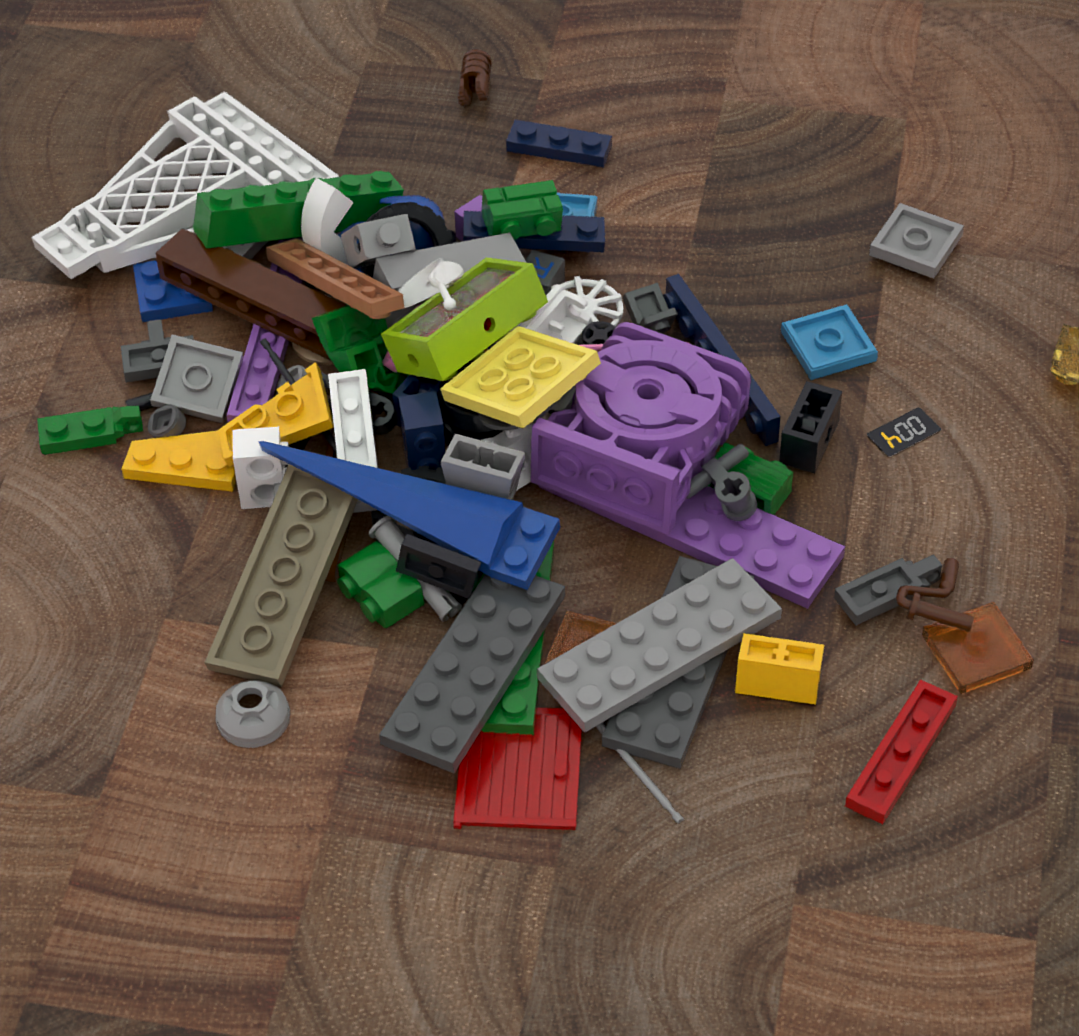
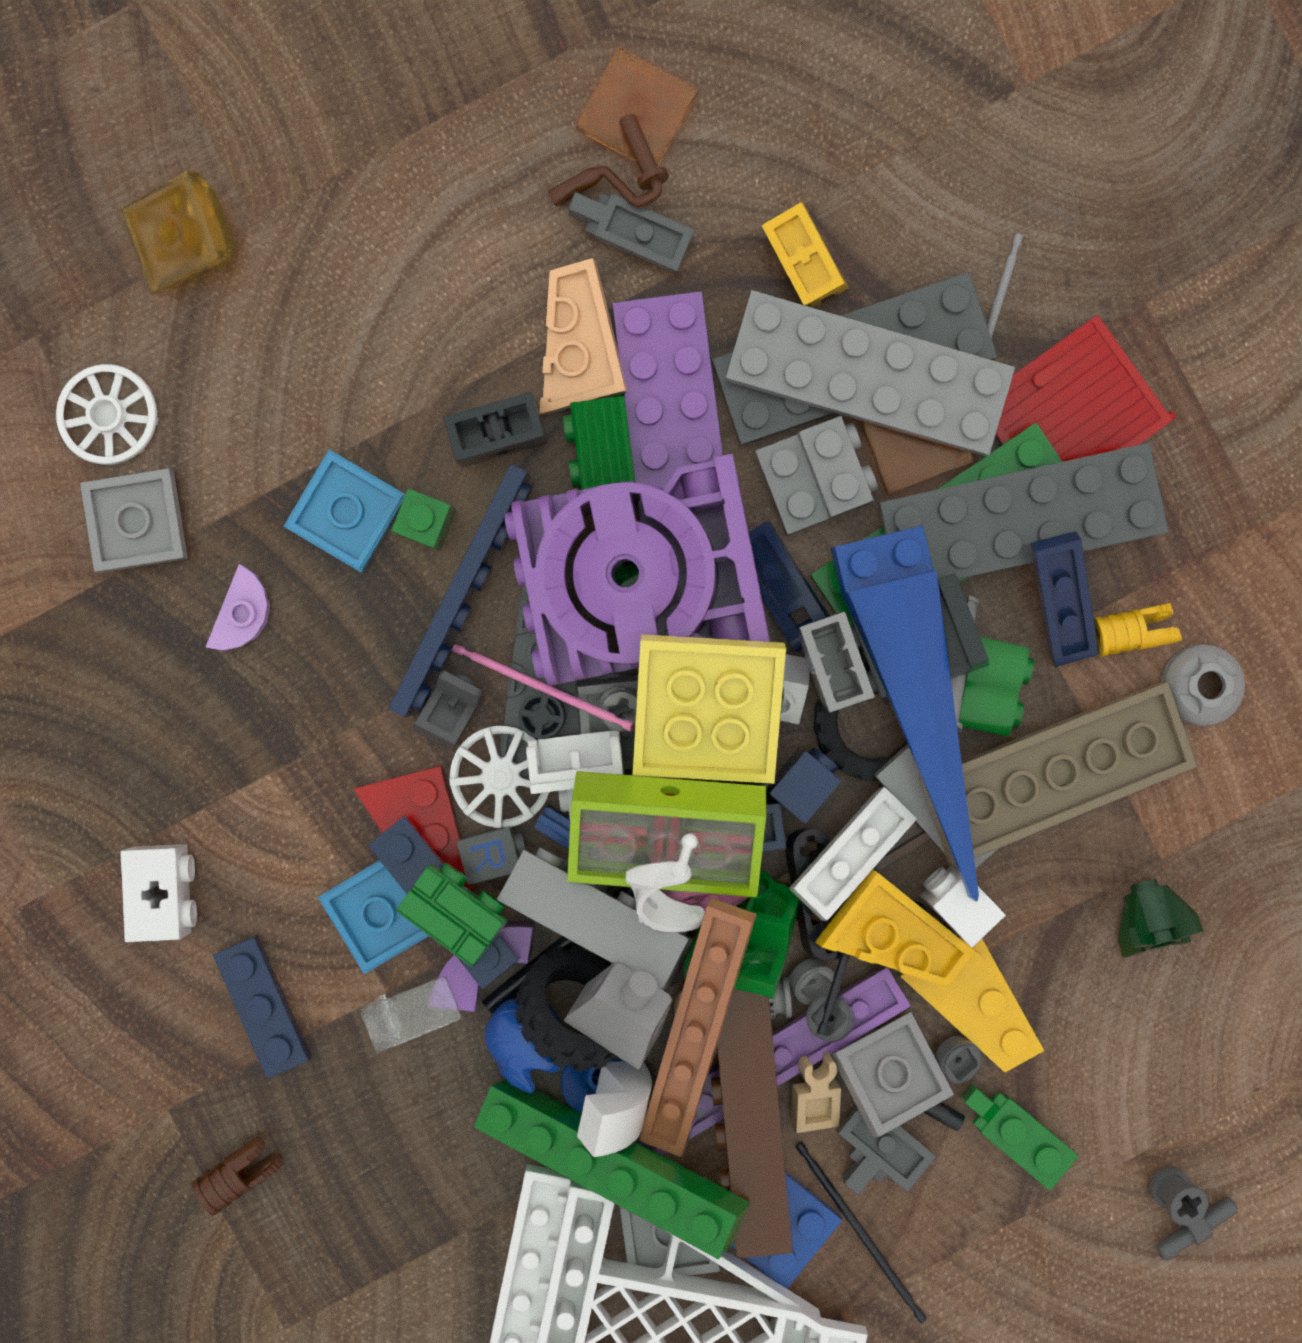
camera: 130 degrees left, 40 degrees up
(118, 323) = (861, 1232): none -> black piece
(136, 570) = (1155, 919): none -> dark green brick
(228, 335) = (817, 1101): none -> tan plate
(261, 365) = (839, 1023): none -> dark grey tile
(303, 356) = (782, 1000): none -> light grey bush
(334, 687) = (1129, 630): none -> yellow hinge
(395, 646) = (1065, 598): none -> dark blue plate
(484, 174) = (410, 1013): none -> clear bracket
(574, 516) = (783, 583): none -> dark blue plate
(614, 265) = (425, 802): none -> red wing
(616, 583) = (816, 475): none -> light grey plate
(674, 130) = (149, 915): none -> white brick
(730, 487) = (640, 463): dark grey piece -> none
(784, 364) = (424, 519): none -> green brick
(809, 259) = (242, 612): none -> lavender plate
(833, 516) = (581, 342): none -> light nougat wing
(901, 752) = (811, 91): red plate -> none
(903, 432) = (410, 358): black sticker -> none
(1000, 269) = (107, 415): none -> white wheel

